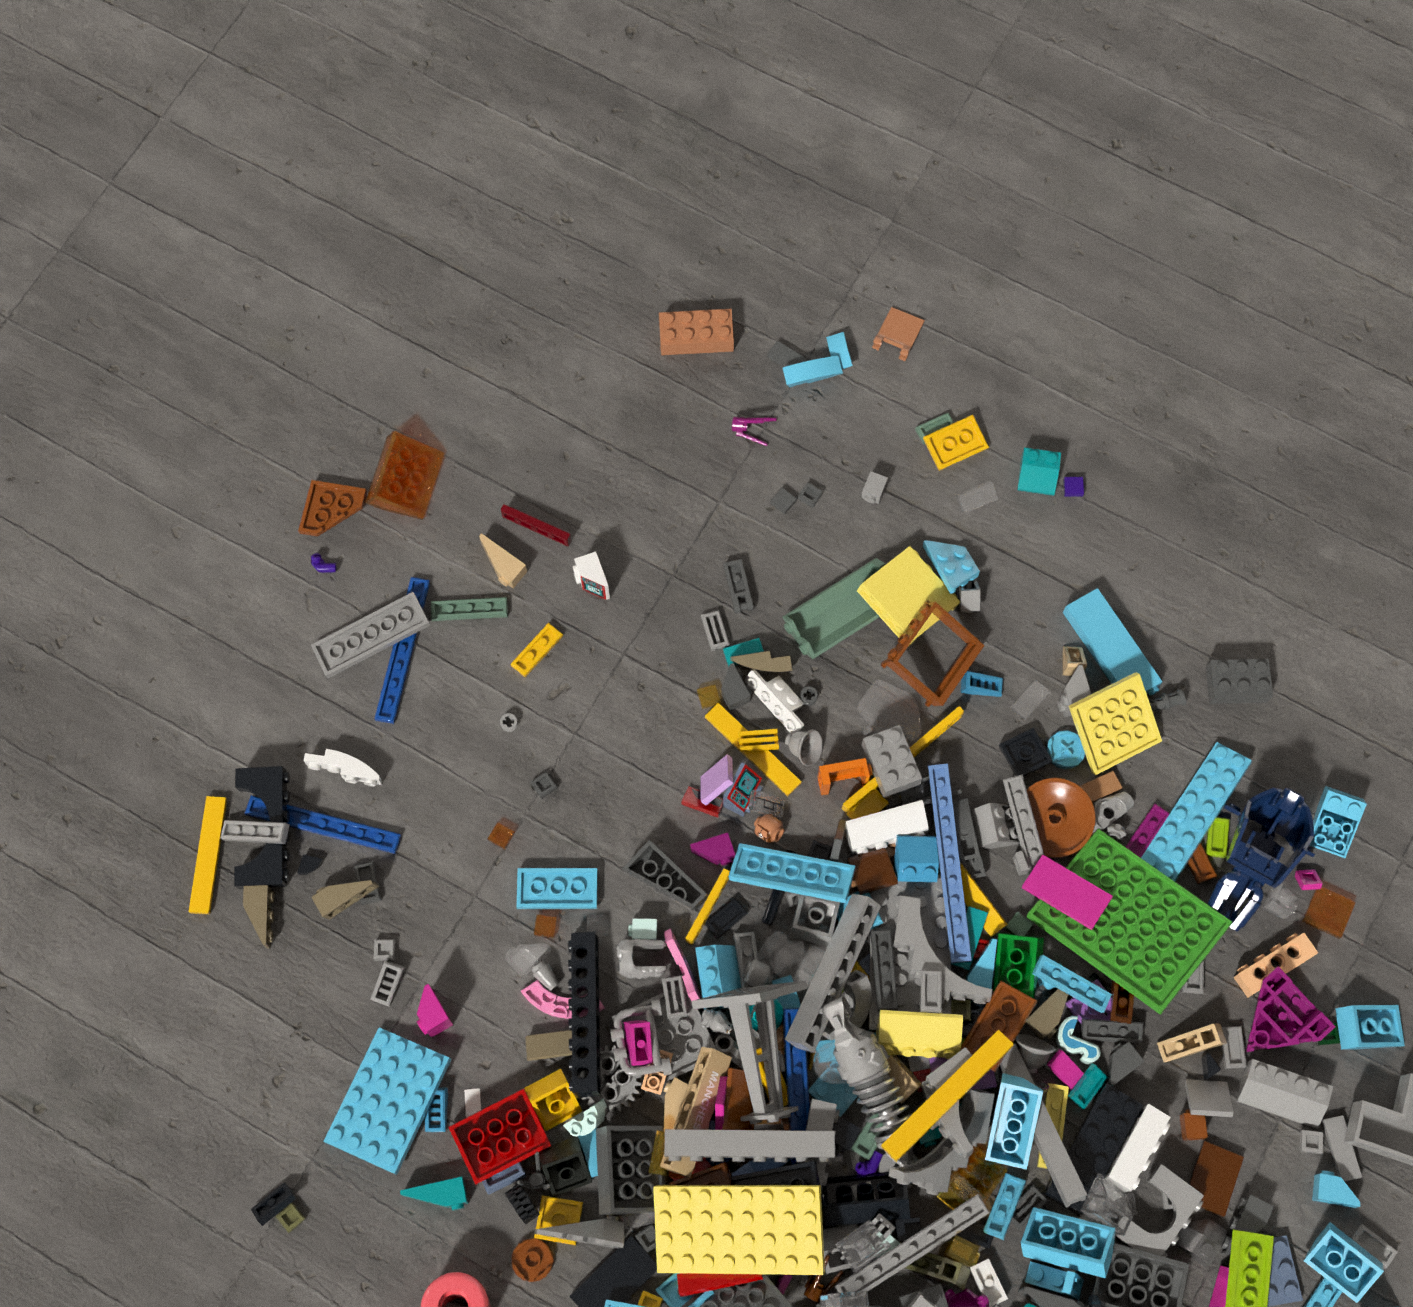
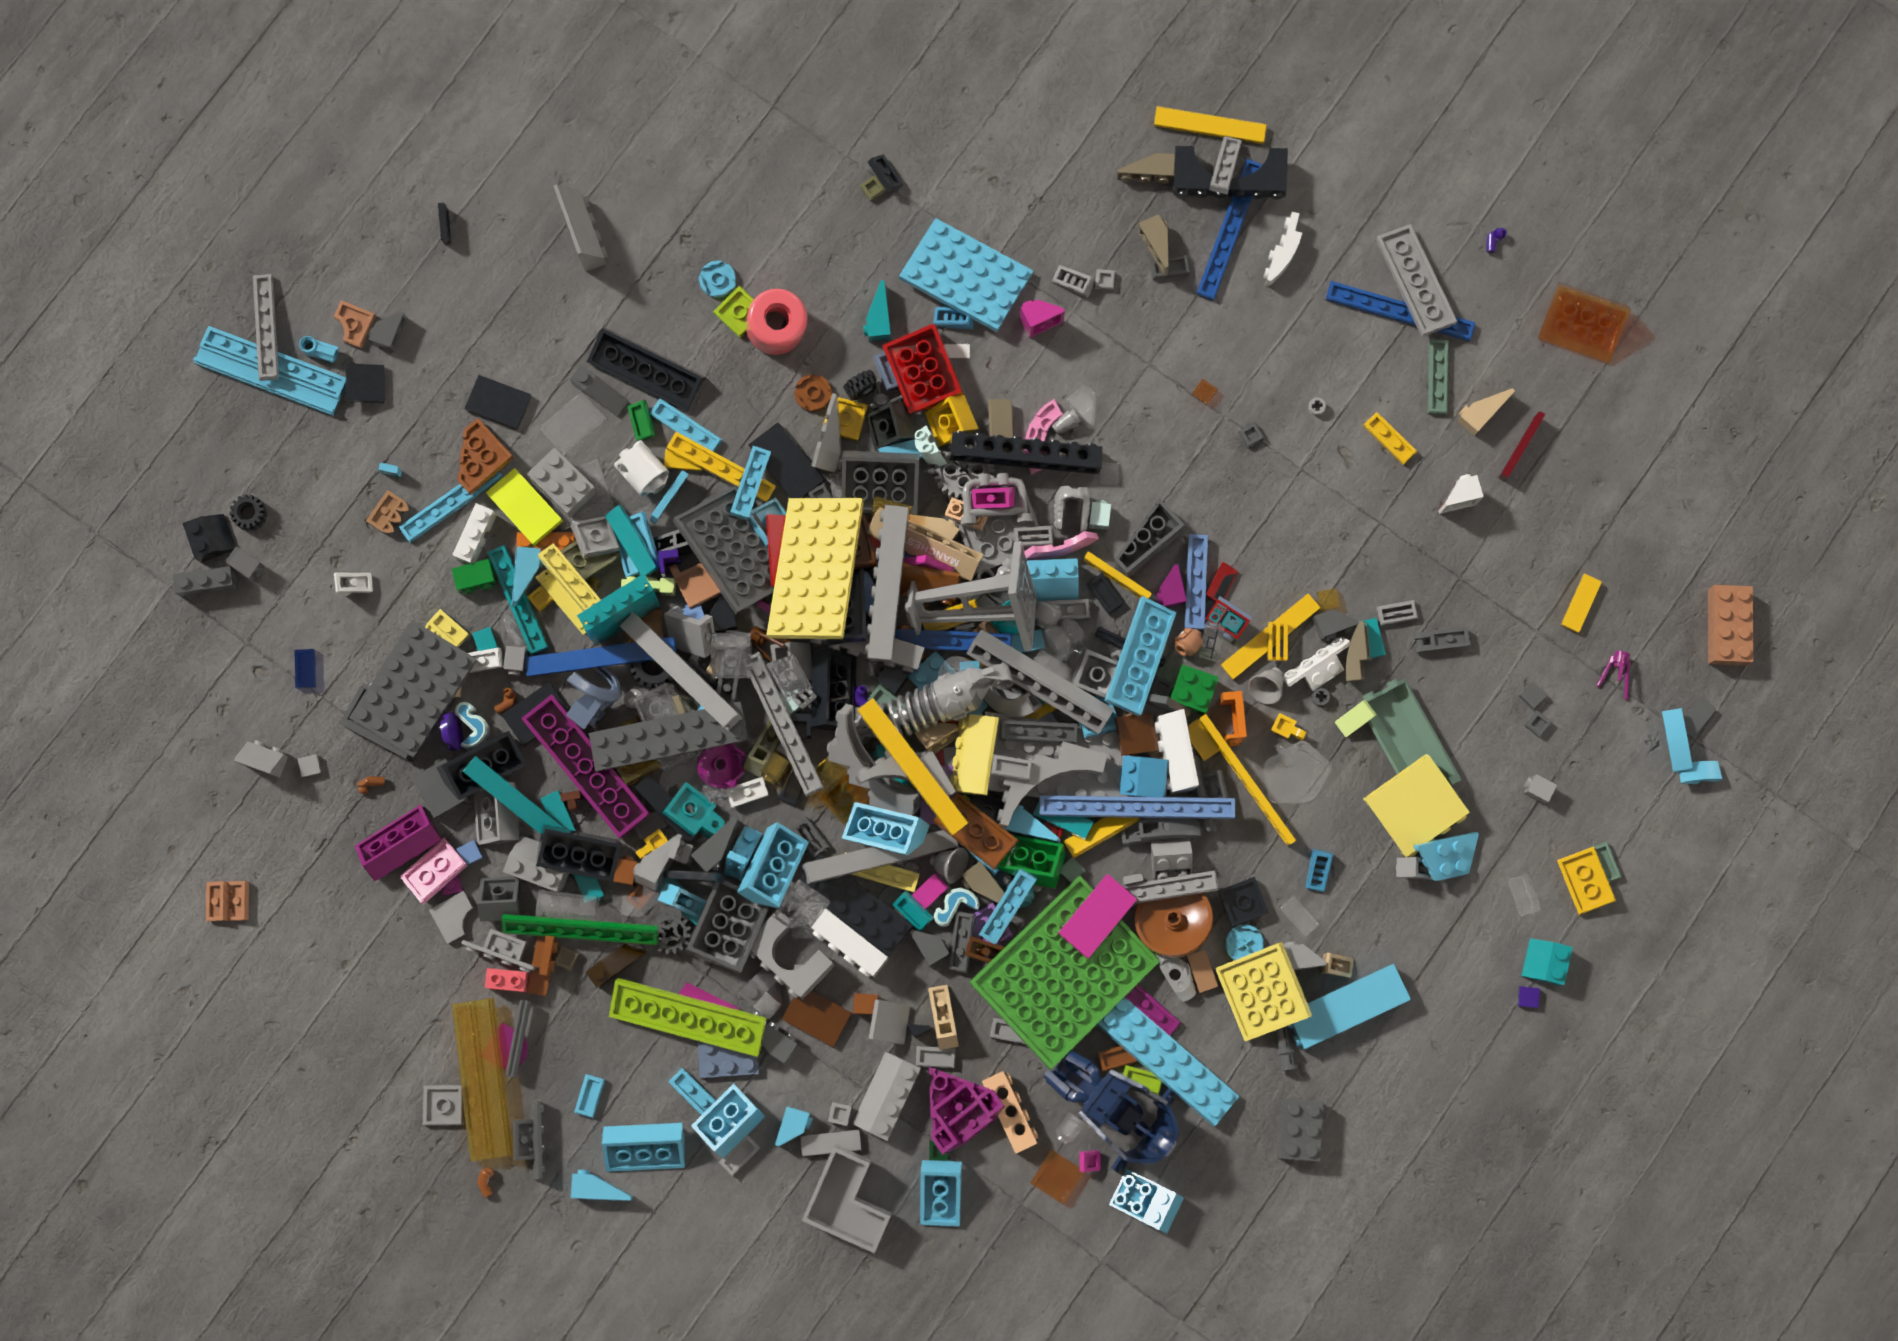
camera: 95 degrees right, 10 degrees up
(309, 864) = (1192, 215): black tile -> none
(329, 505) = (1556, 247): dark orange plate -> none
(545, 926) = (1113, 426): clear orange tile -> none
(557, 888) = (1148, 439): medium azure plate -> none
(687, 463) = (1581, 603): none -> yellow tile
(704, 826) = (1196, 581): none -> medium blue plate
(716, 779) = (1239, 594): lavender tile -> none
(818, 819) = (1194, 689): none -> green brick
(828, 659) = (1355, 718): none -> yellowish green tile
(844, 726) = (1285, 726): none -> yellow plate
(891, 761) = (1242, 763): light grey brick -> none
(899, 330) = (1721, 839): nougat flag -> none
(958, 669) = (1331, 842): dark orange window -> none
(962, 1008) = (994, 800): olive tile -> none
(1004, 1206) = (812, 816): medium azure tile -> none
(1116, 832) = (1154, 978): light grey plate -> none

